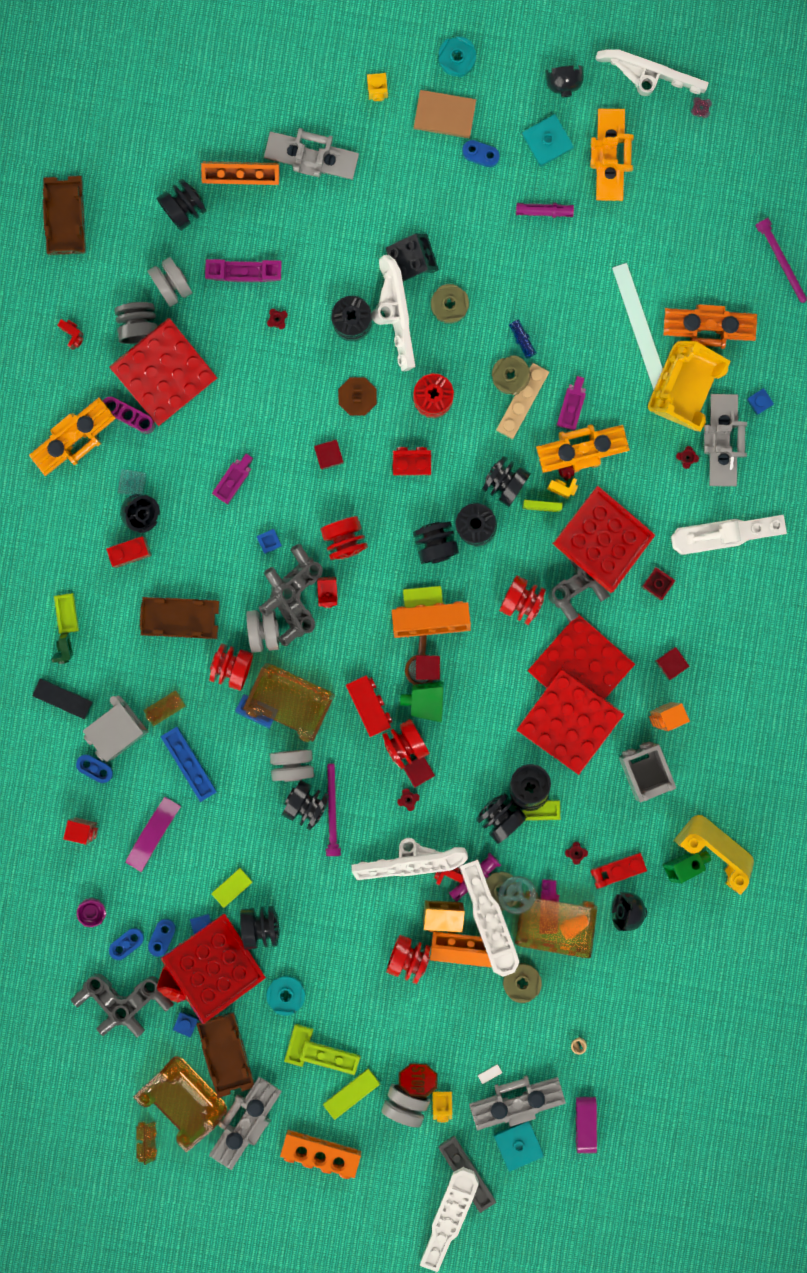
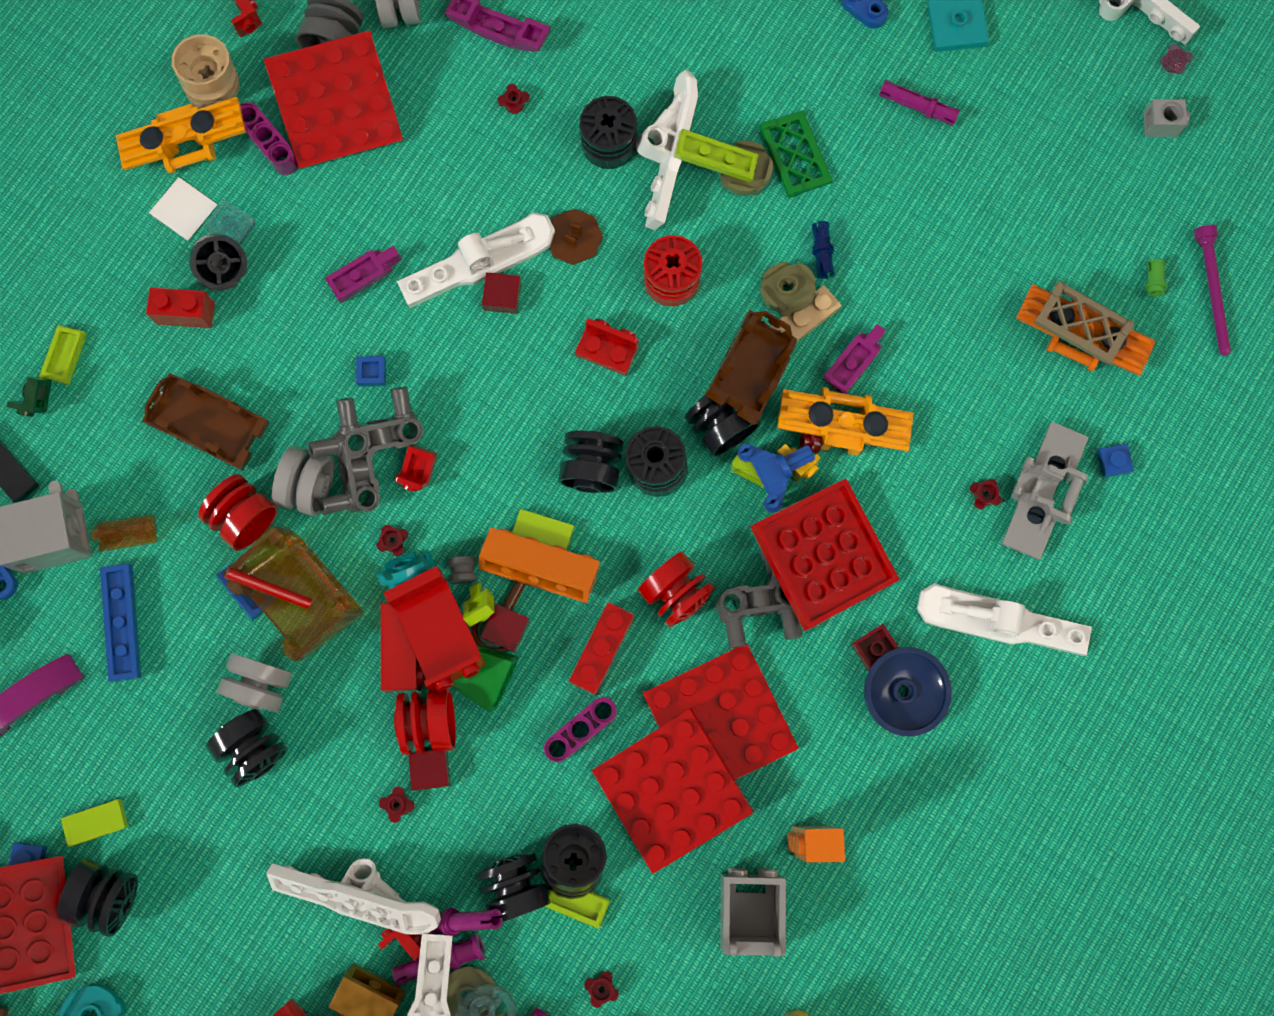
camera: 25 degrees right, 10 degrees down
(58, 386) = (205, 70): none -> tan wheel
(94, 484) = (183, 208): none -> white sticker
(273, 705) = (268, 588): none -> red bar
(305, 436) = (480, 255): none -> white piece
(328, 638) = (384, 541): none -> dark red plate
(333, 848) = (260, 828): magenta piece -> none
(344, 538) = (470, 404): red wheel -> none
(351, 657) = (404, 568): none -> teal plate
(384, 643) = (461, 570): none -> dark grey wheel
(388, 687) = (436, 629): none -> red panel
(407, 660) = (479, 606): none -> lime plate
(413, 256) = (724, 90): black bracket -> none
(429, 306) = (715, 155): none -> lime tile
(475, 851) = (454, 921): none -> magenta pin
(480, 263) = (808, 137): none -> green window
(491, 655) = (601, 649): none -> red brick
(493, 716) = (566, 732): none -> magenta beam
(512, 439) = (753, 365): none -> reddish brown piece
(552, 500) = (775, 470): none -> blue axle
(603, 154) = (1024, 67): light orange piece -> none
(638, 322) = (987, 313): light aqua piece -> none
(672, 663) = (852, 770): dark red piece -> none
(686, 383) = (1024, 394): yellow windscreen -> none
(696, 335) = (1085, 345): none -> dark tan window
(699, 602) = (926, 694): none -> dark blue dish
(704, 160) = (1157, 125): none -> light grey brick
(742, 269) = (1156, 278): none -> bright green pin

